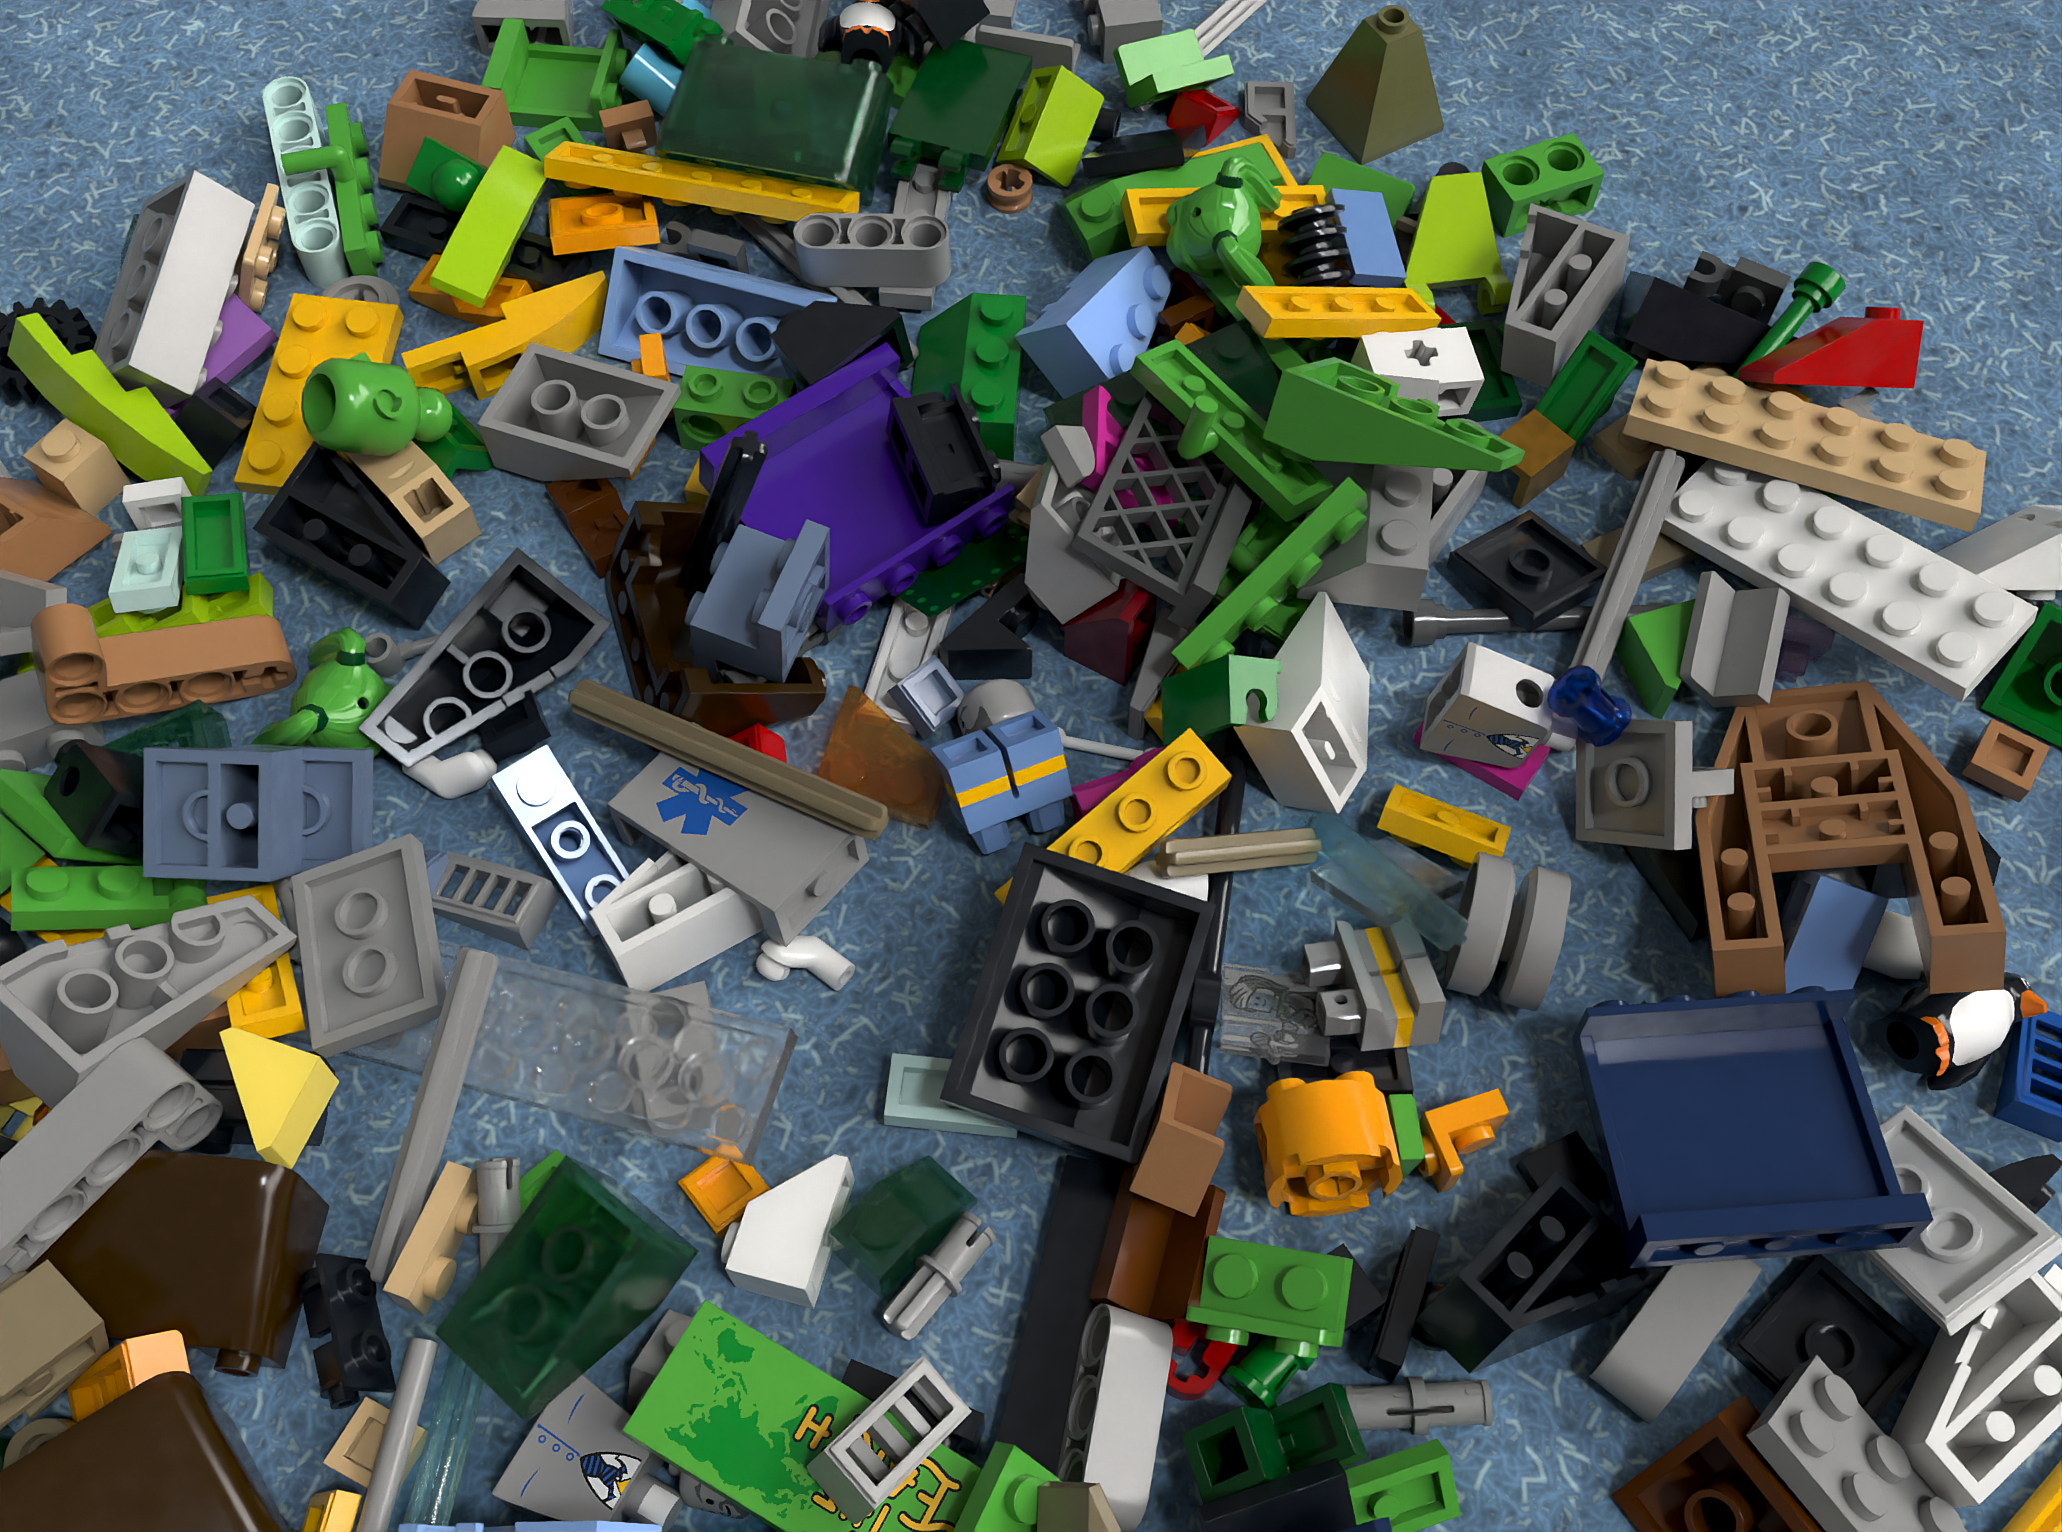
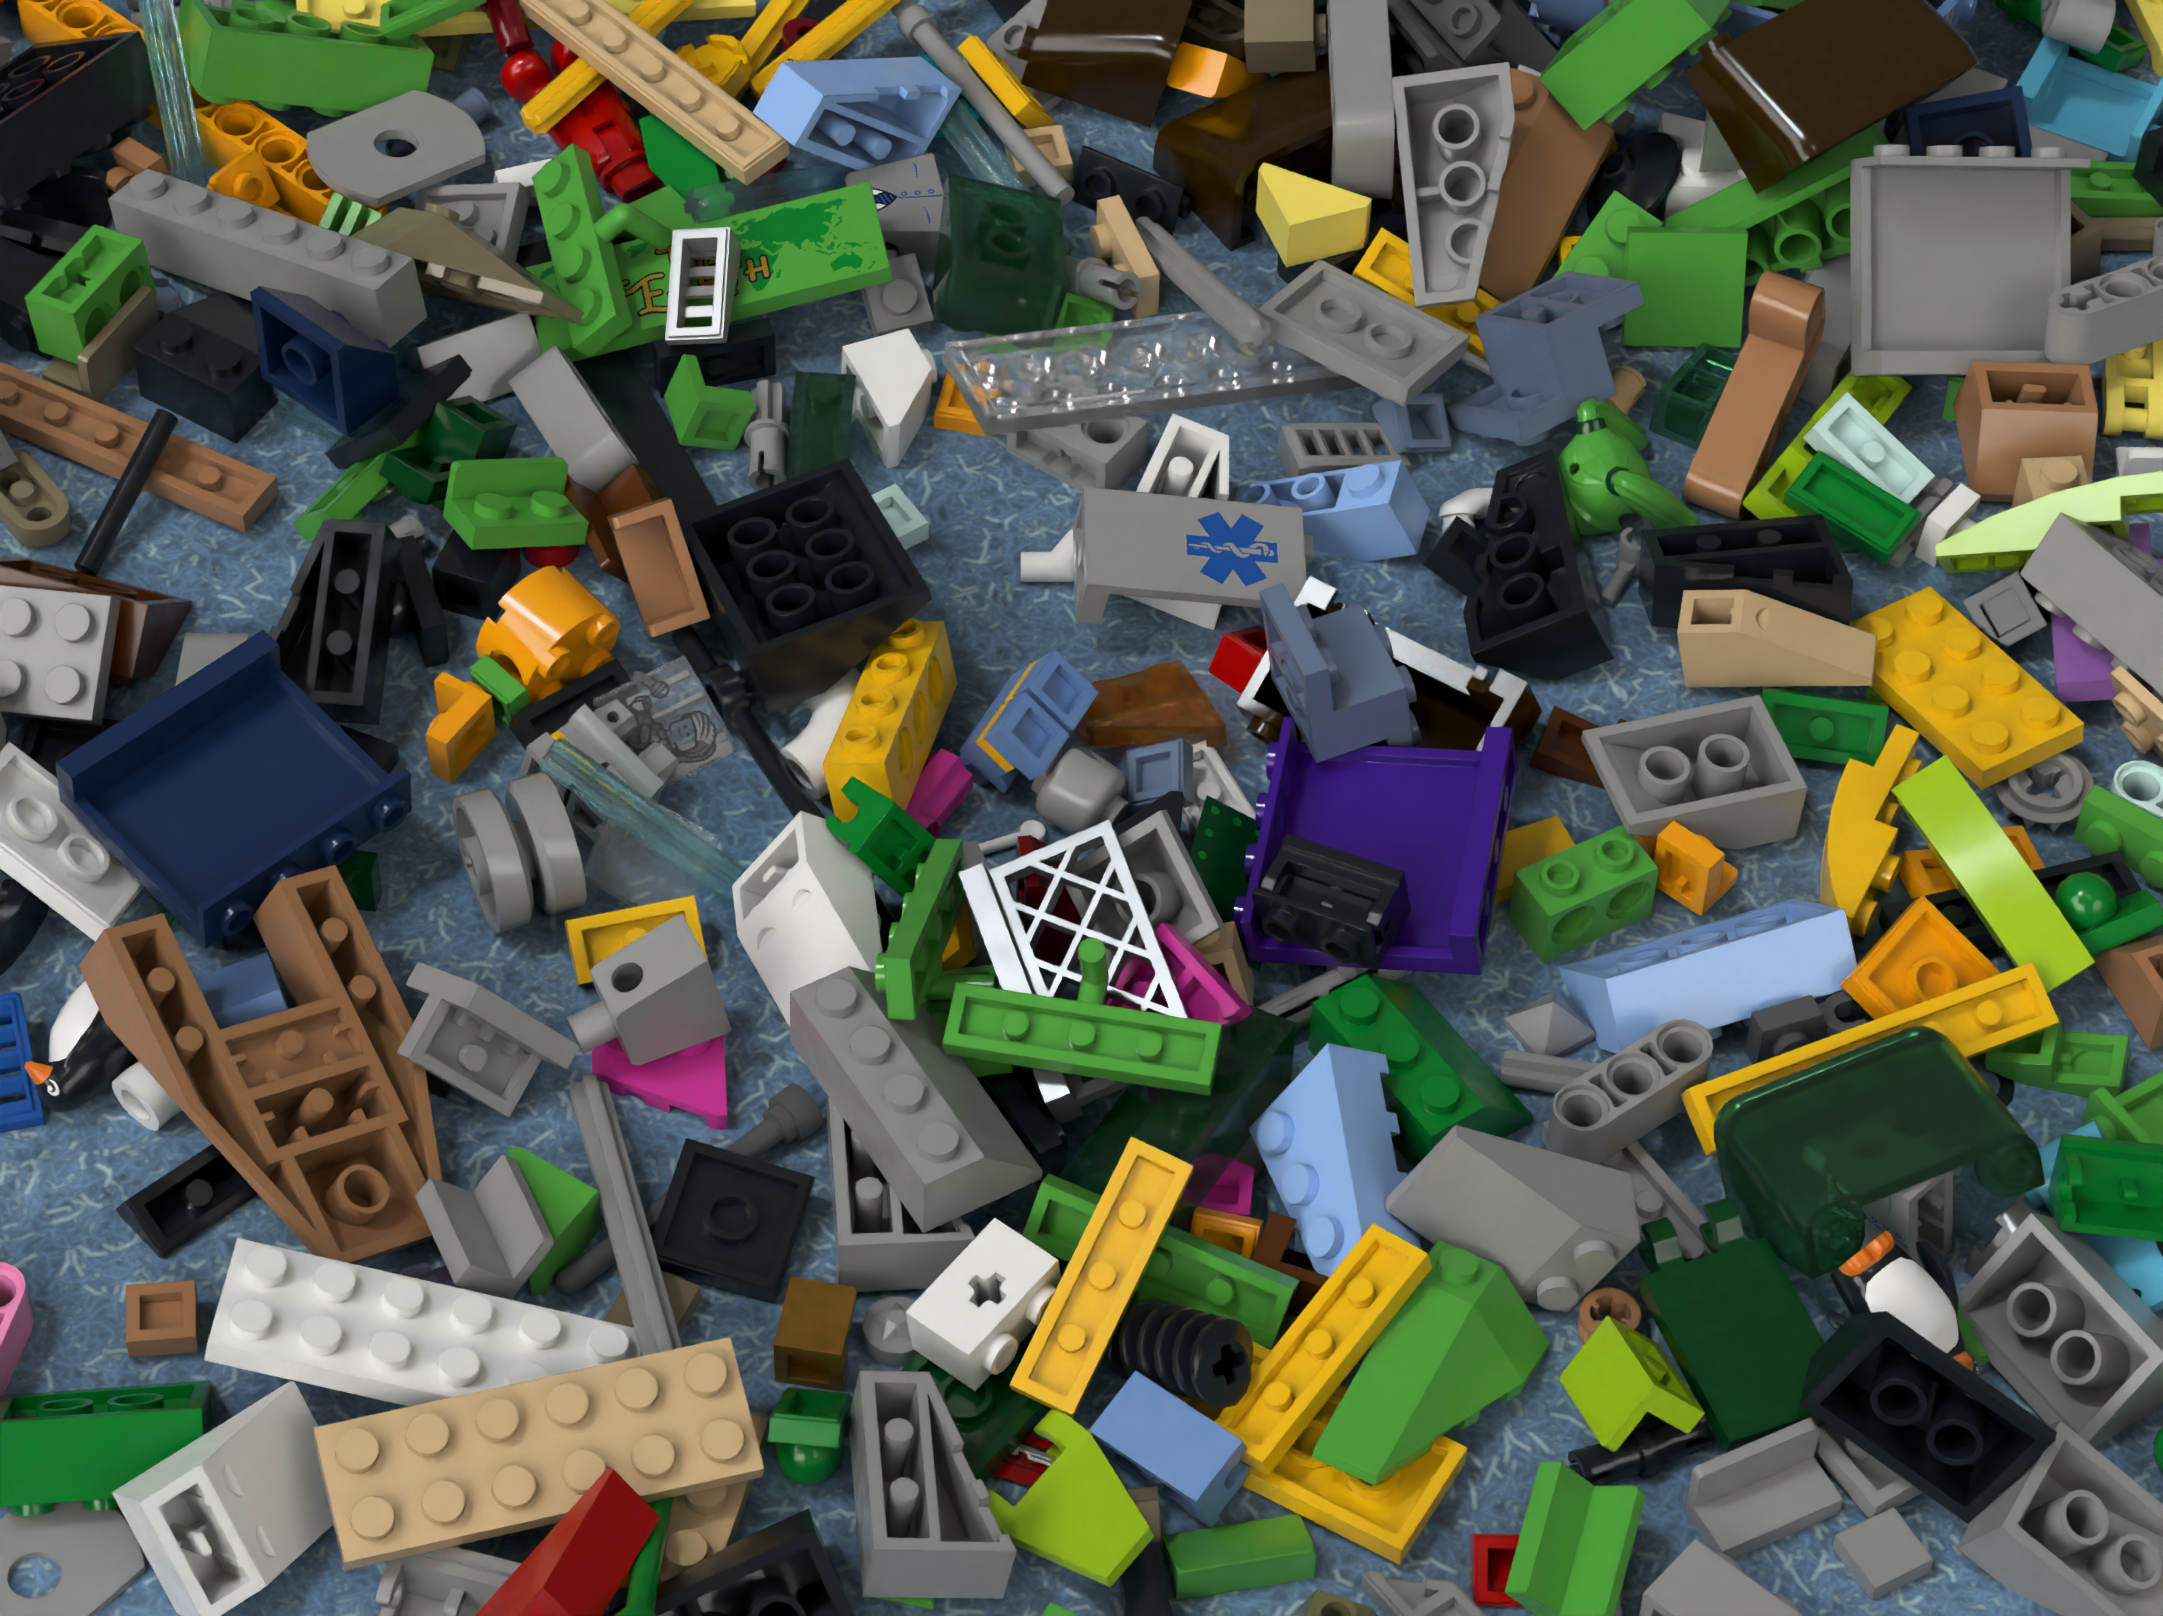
camera: 140 degrees right, 10 degrees down
(99, 796) = (1674, 310): black torso -> none
(370, 407) = (1829, 607): bright green piece -> none
(629, 127) = (2036, 1104): medium nougat tile -> none
(723, 508) = (1415, 659): black axle -> none
(730, 759) = (1238, 569): dark tan axle -> none
(834, 334) = (1524, 935): black slope -> none
(980, 1341) = (703, 413): none -> bright green panel
(1023, 204) = (1530, 1210): none -> light grey slope
(1069, 452) = (1195, 914): light grey tile -> none
(1144, 151) = (1493, 1404): black tile -> none
(1227, 224) = (1285, 1271): bright green hair -> none
(1237, 852) = (786, 785): dark tan axle -> none
(1355, 417) = (933, 1052): bright green wedge -> none
(1581, 698) = (567, 1000): clear blue bush -> none

